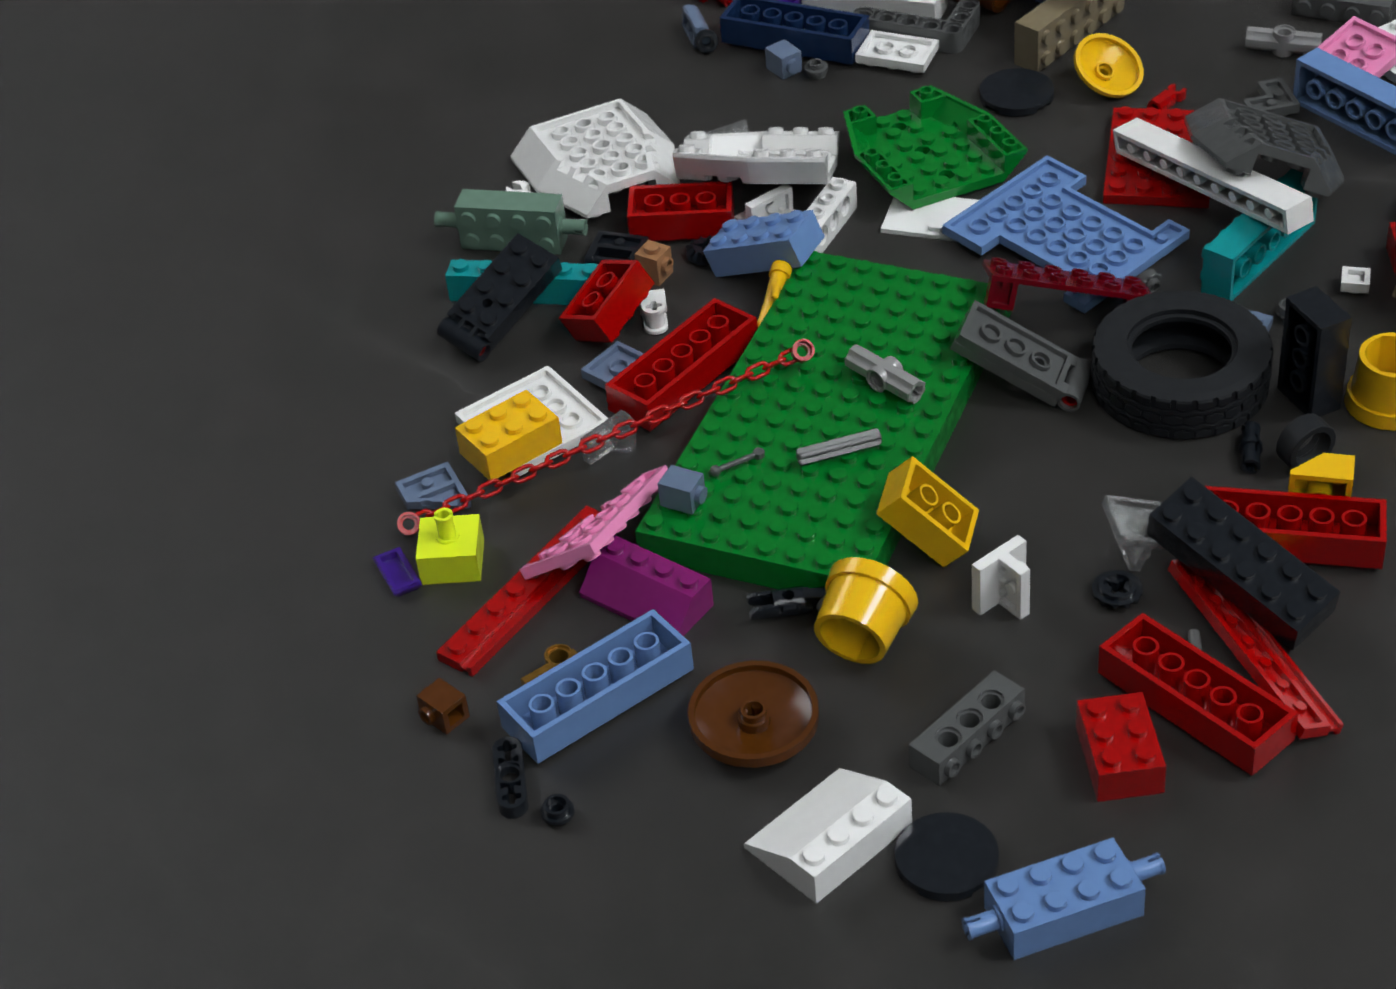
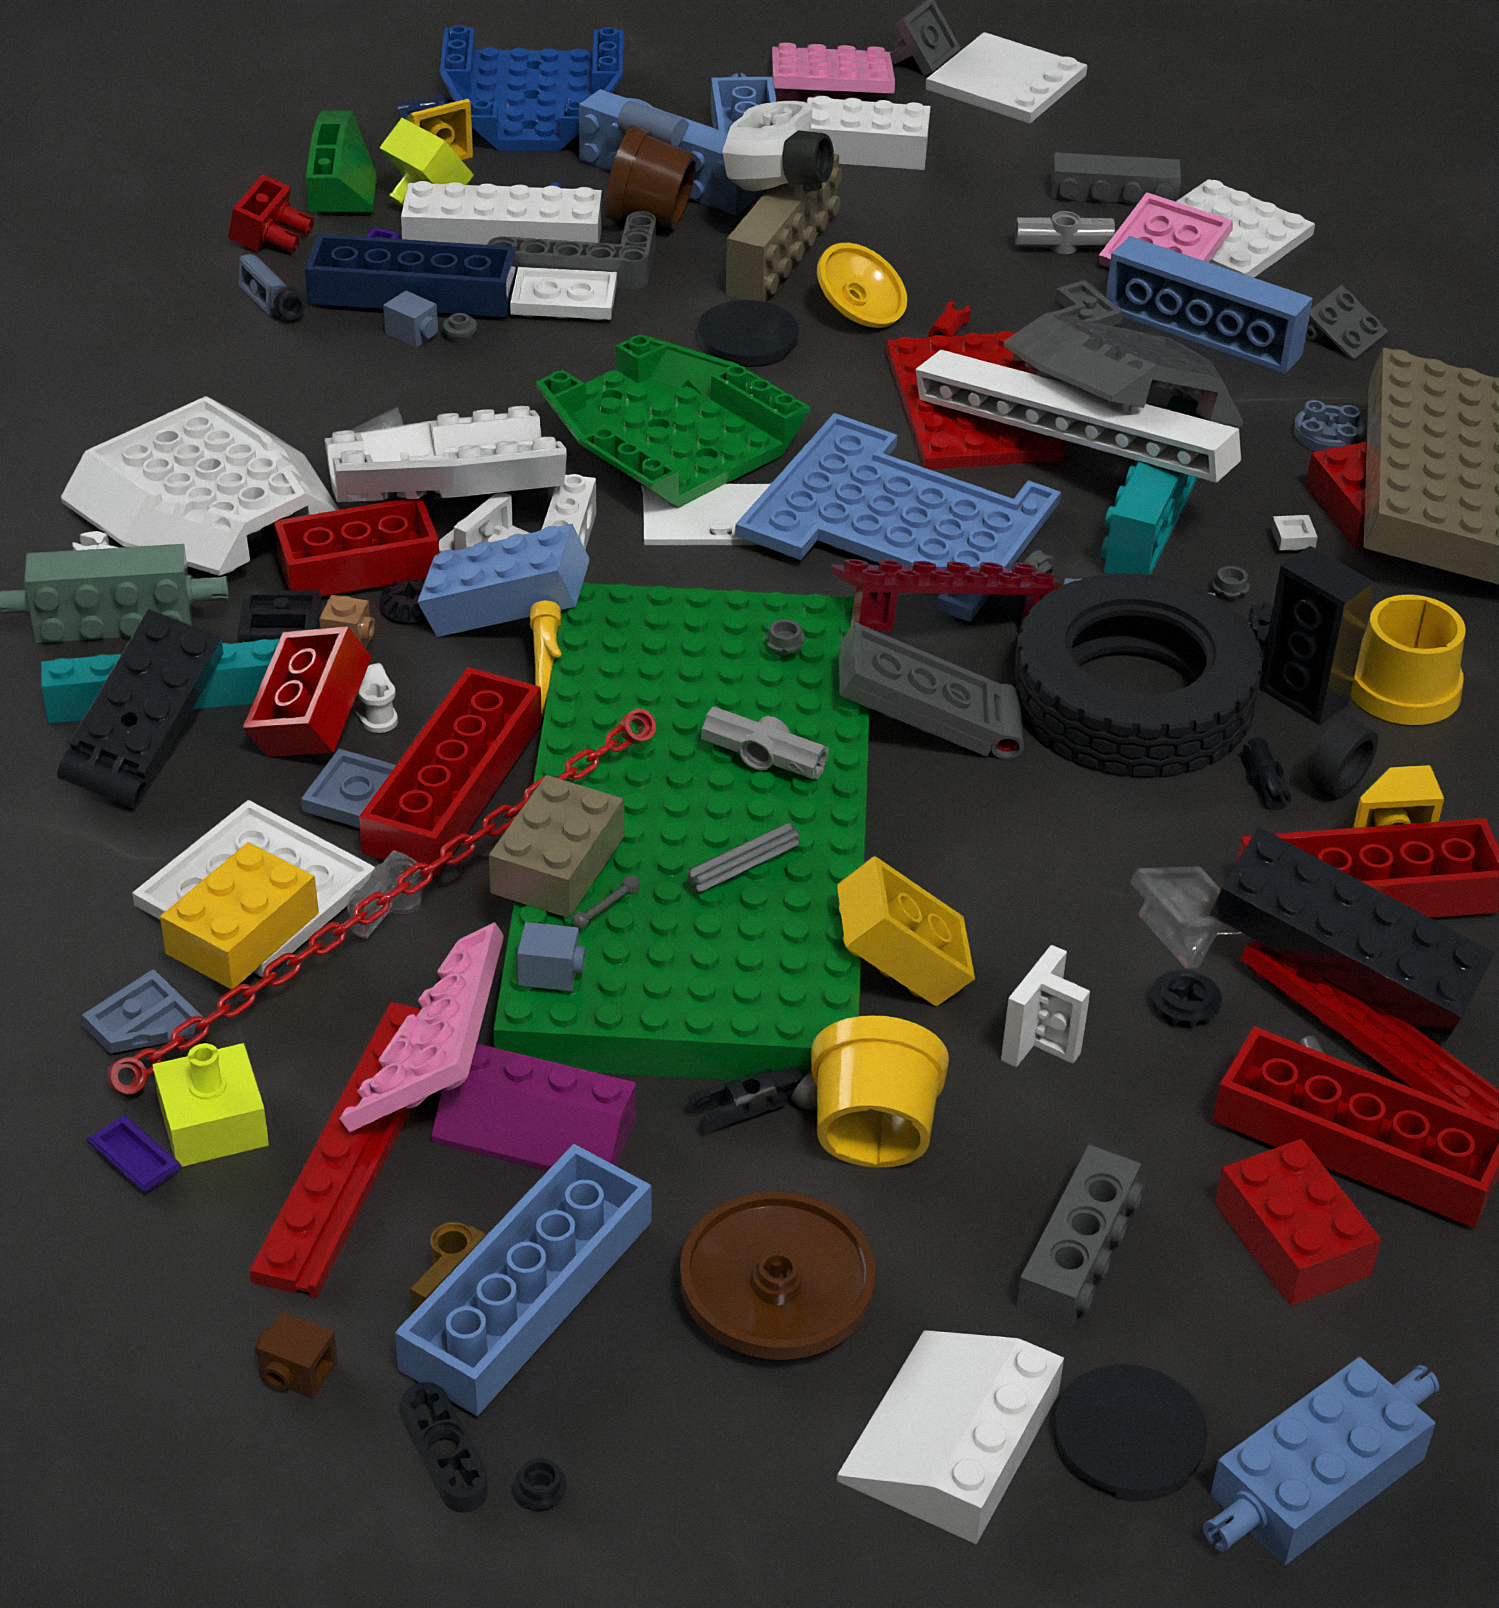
camera: 25 degrees left, 0 degrees up
(716, 420) = (556, 846): none -> dark tan brick
(932, 305) = (785, 637): none -> dark grey plate

